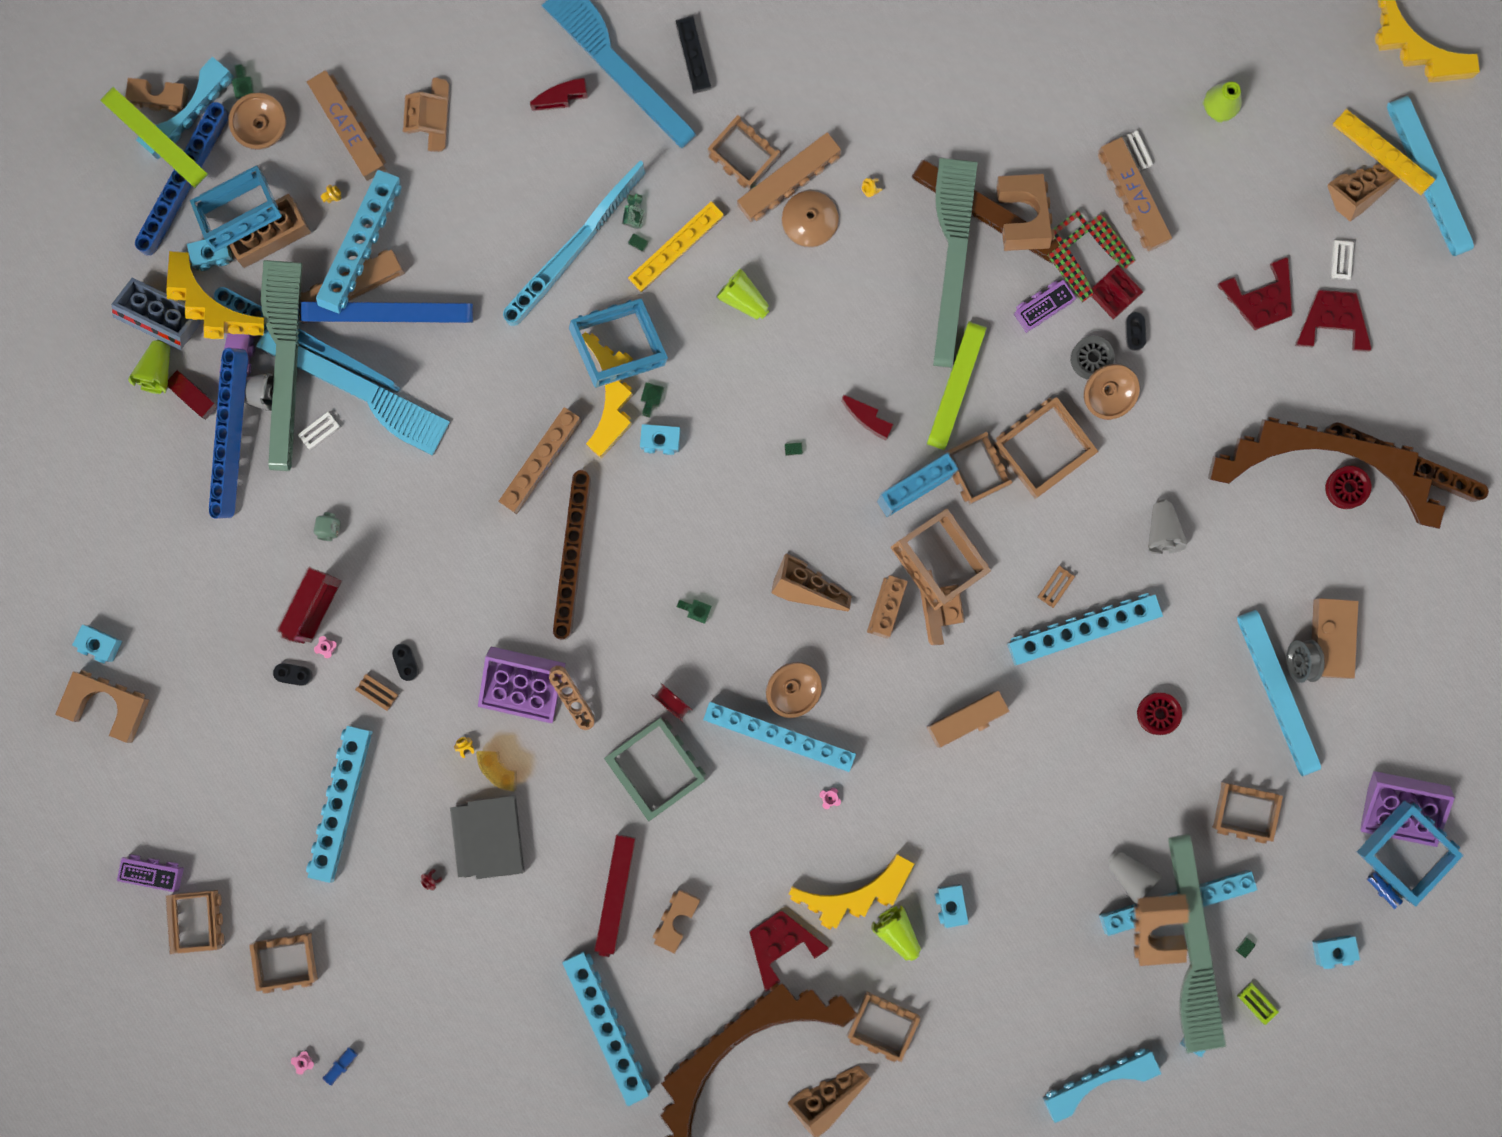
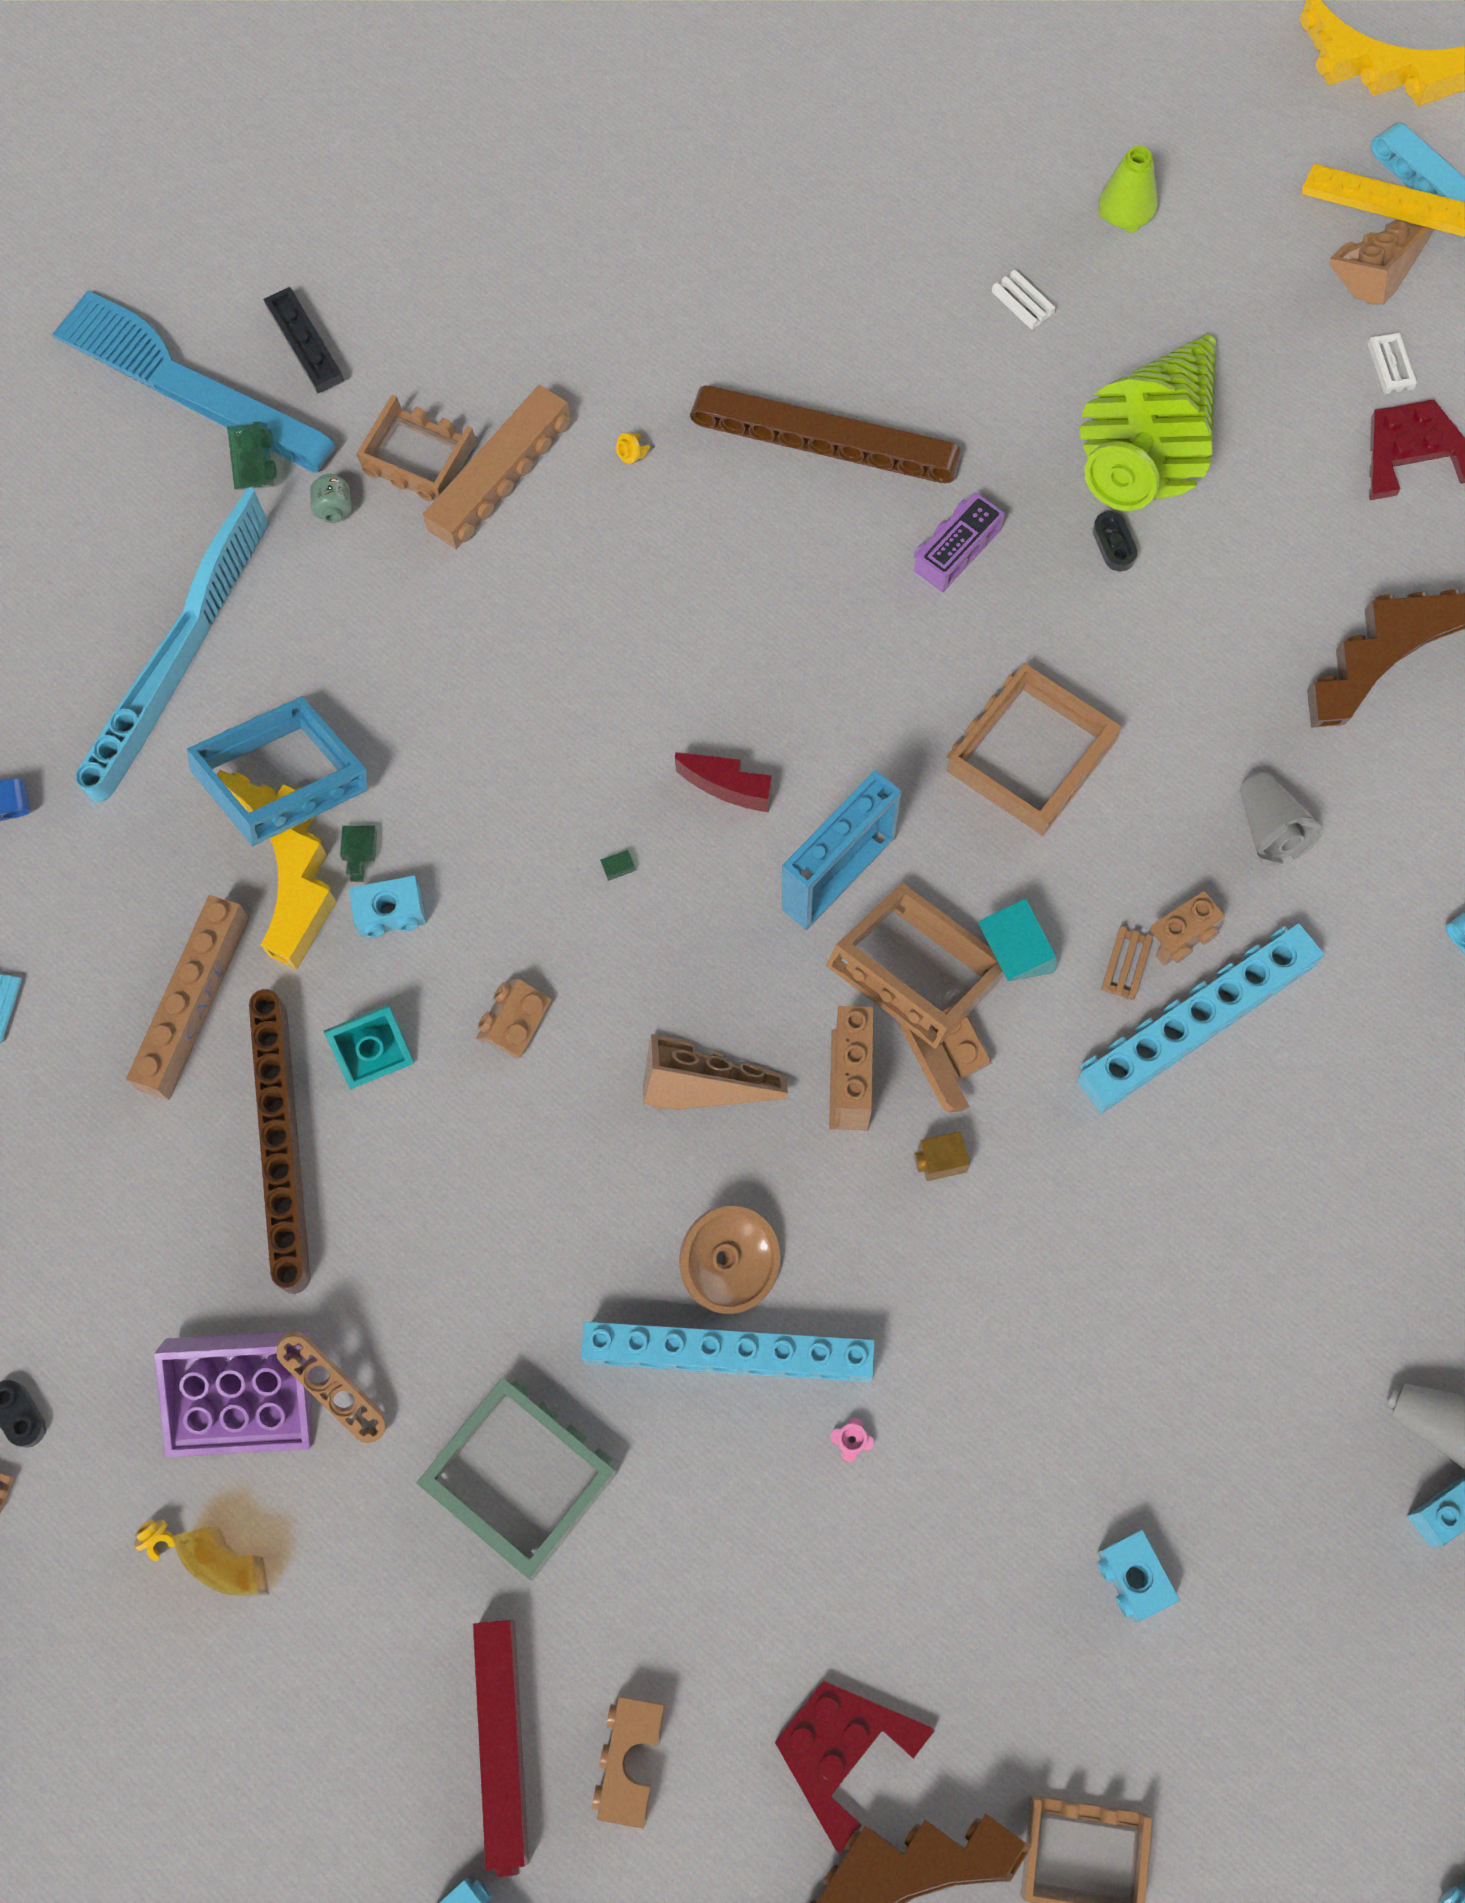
camera: 15 degrees left, 15 degrees down
(428, 882) = (133, 1825): dark red plate -> none
(487, 838) = (232, 1703): dark grey piece -> none
(559, 95) = (105, 445): dark red slope -> none
(632, 213) = (260, 581): clear green plate -> none
(632, 518) = (369, 1046): none -> teal slope
(638, 242) = (280, 623): clear green piece -> none
(644, 130) = (251, 456): none -> clear green bracket
(672, 702) = (516, 1343): dark red wheel -> none
(676, 247) = (342, 612): yellow plate -> none
(685, 171) = (330, 498): none -> sand green head
(697, 610) = (523, 1172): clear green plate -> none
(713, 522) = (513, 1017): none -> medium nougat bracket
(743, 296) = (470, 650): lime cone -> none
(809, 231) = (550, 532): medium nougat dish -> none
(833, 907) = (919, 1645): yellow arch -> none
(897, 932) = (1054, 1658): lime cone -> none
(921, 666) = (942, 1156): none -> pearl gold brick
(953, 209) = (771, 441): sand green piece -> none
(956, 385) = (856, 692): lime beam -> none
(968, 719) = (1053, 1221): medium nougat brick -> none
(978, 469) = (937, 812): clear window -> none
(998, 561) = (1019, 942): none -> teal slope
(1032, 191) = (884, 386): medium nougat arch -> none
(1091, 340) = (1064, 579): dark grey wheel -> none
(1096, 576) = (1186, 926): none -> medium nougat bracket
(1103, 235) = (975, 471): piece -> none
(1115, 292) = (1059, 497): dark red slope -> none
(1118, 398) = (1125, 629): medium nougat dish -> none
(1135, 194) = (1035, 346): medium nougat brick -> none
(1171, 701) = (1392, 1095): dark red wheel -> none
(1181, 270) = (1152, 428): none -> lime plant
(1266, 304) = (1299, 454): dark red wing -> none

